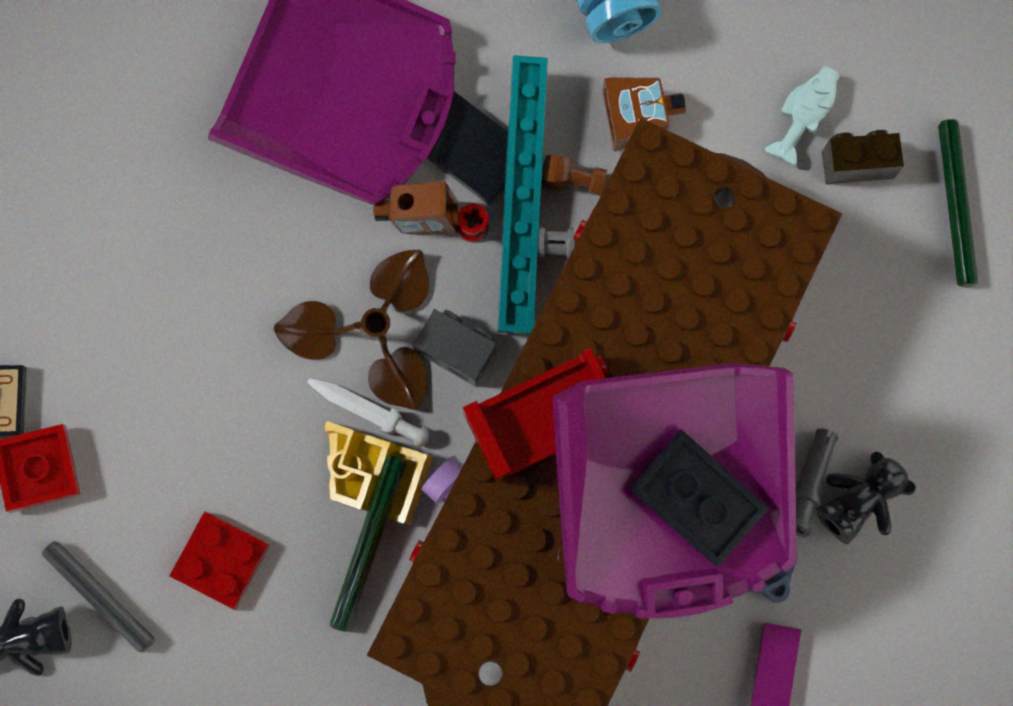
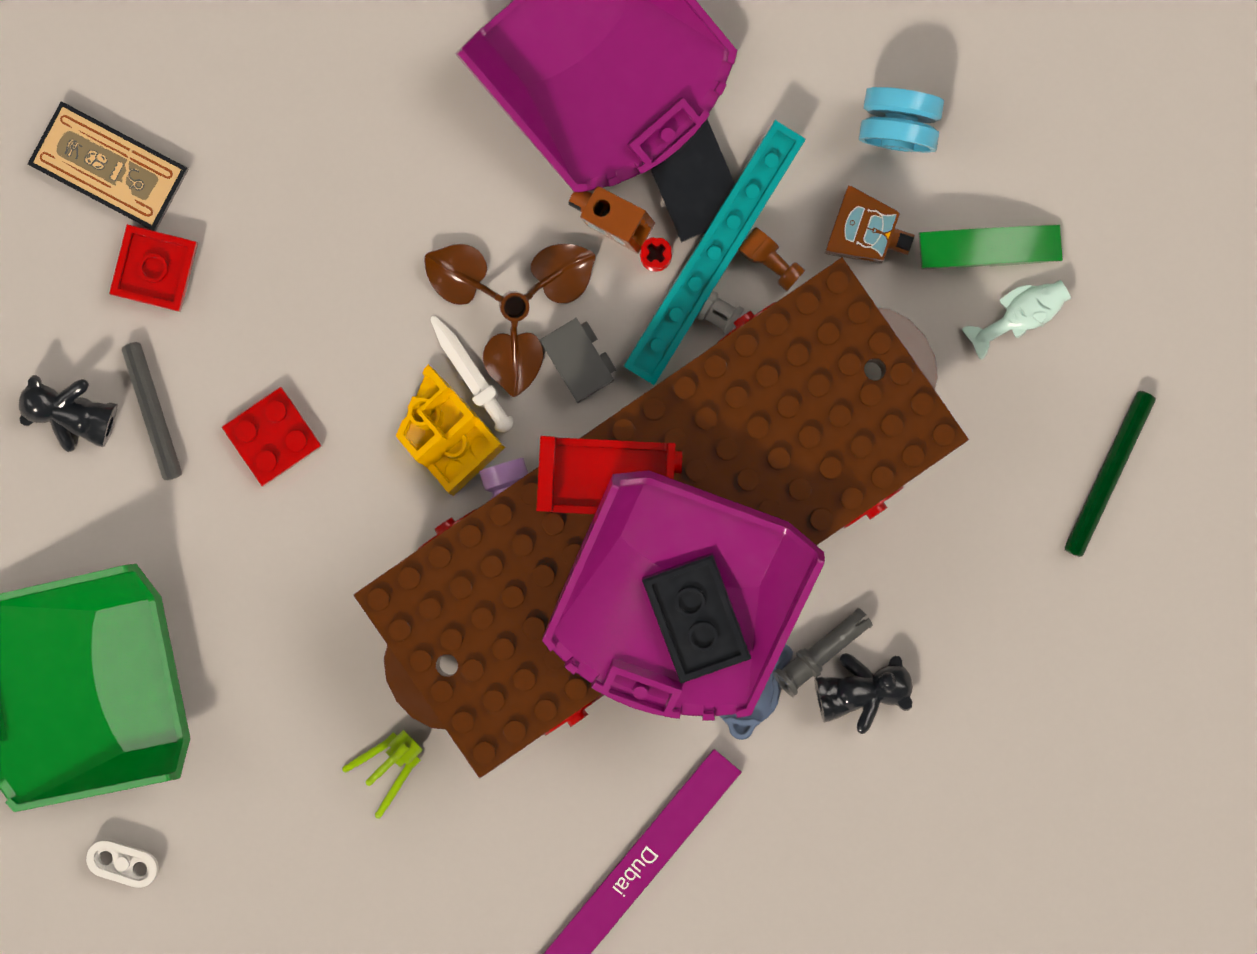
camera: 40 degrees right, 10 degrees up
(367, 544) = (408, 492): dark green axle -> none
(748, 70) = (990, 246): none -> green slope
(862, 157) = (1043, 386): dark brown brick -> none

